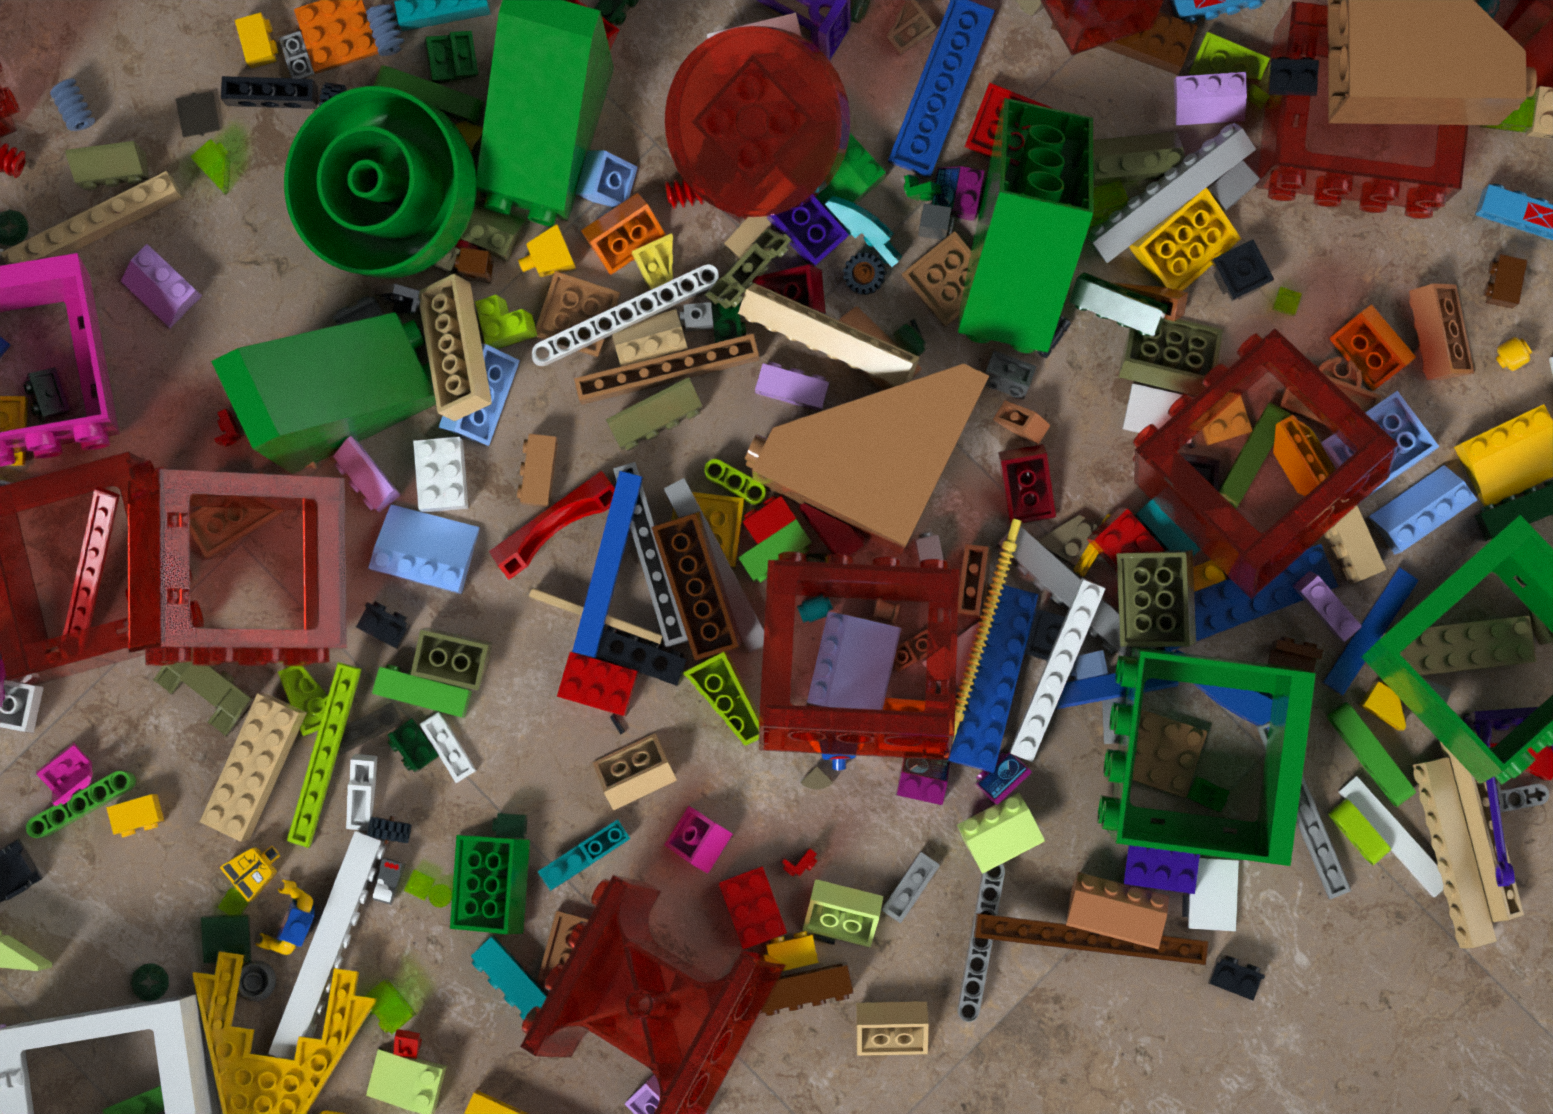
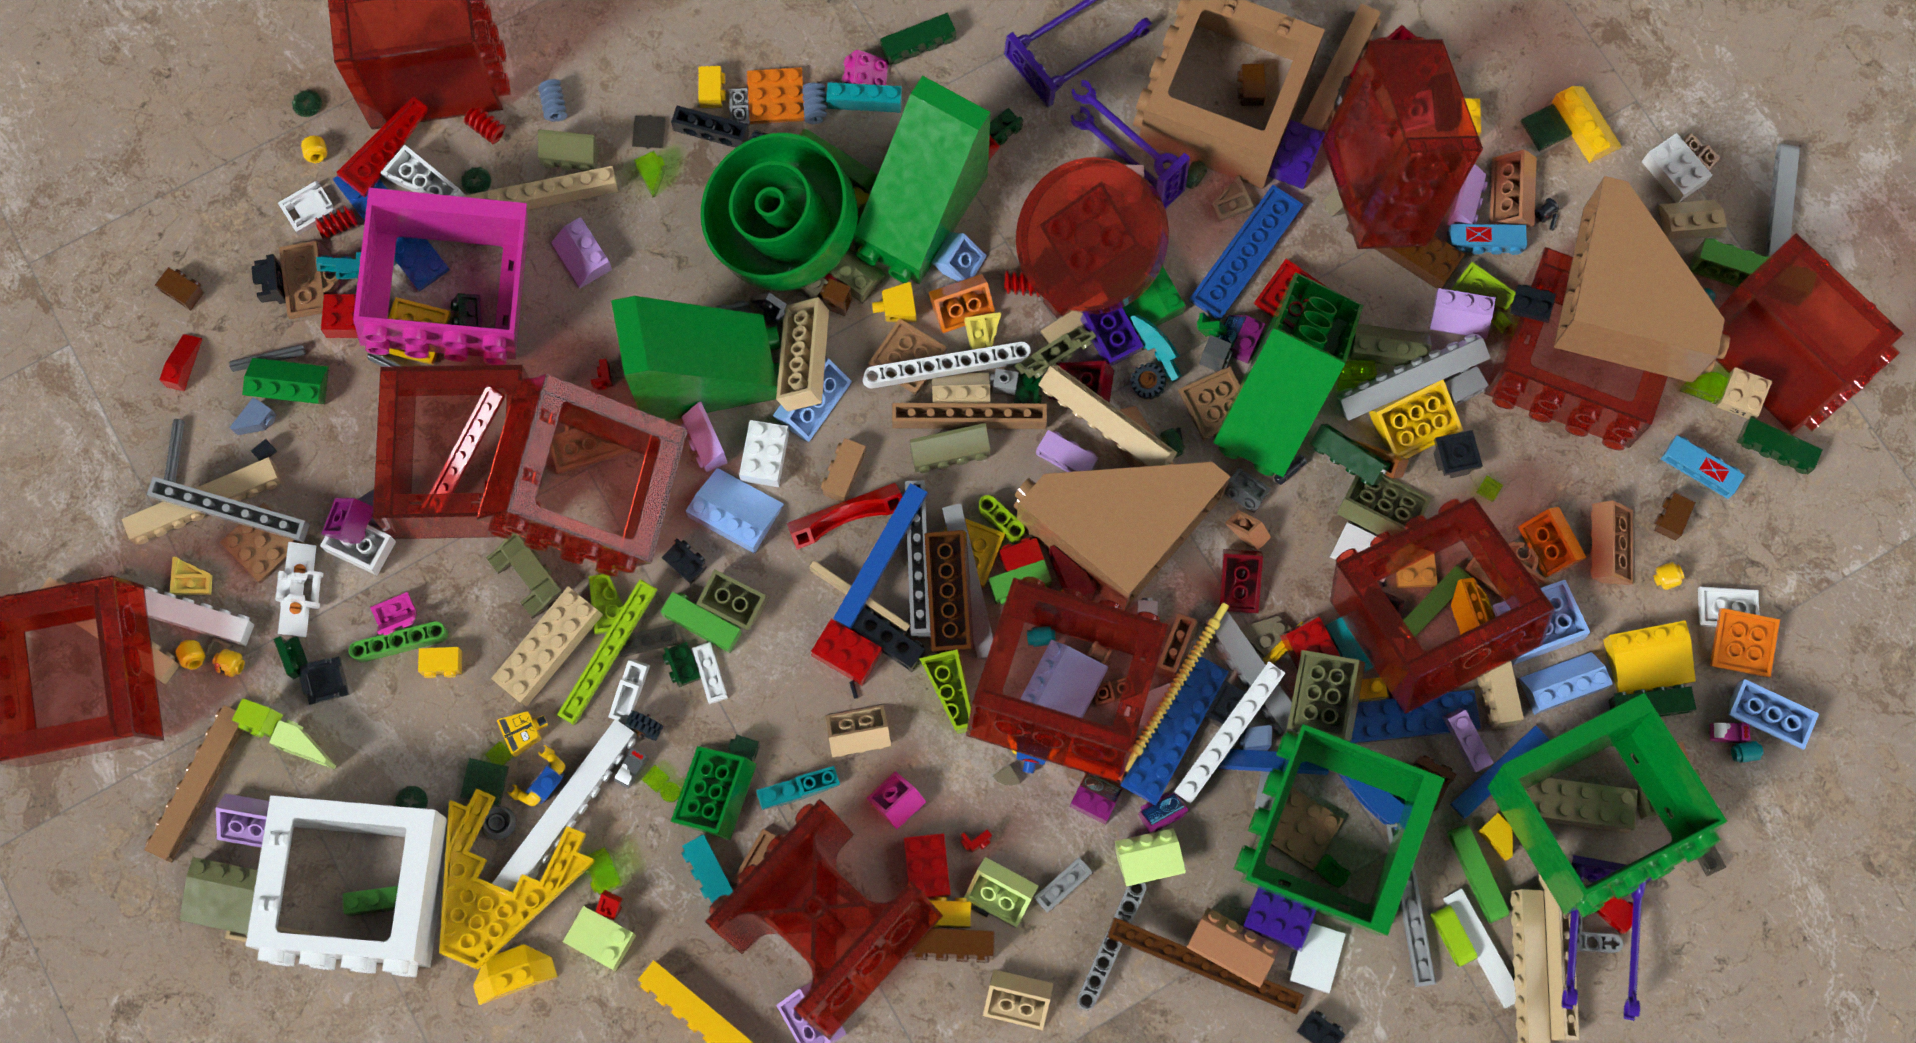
camera: 10 degrees right, 10 degrees down
(451, 56) = (861, 136): green slope -> none
(502, 327) = (845, 350): lime brick -> none

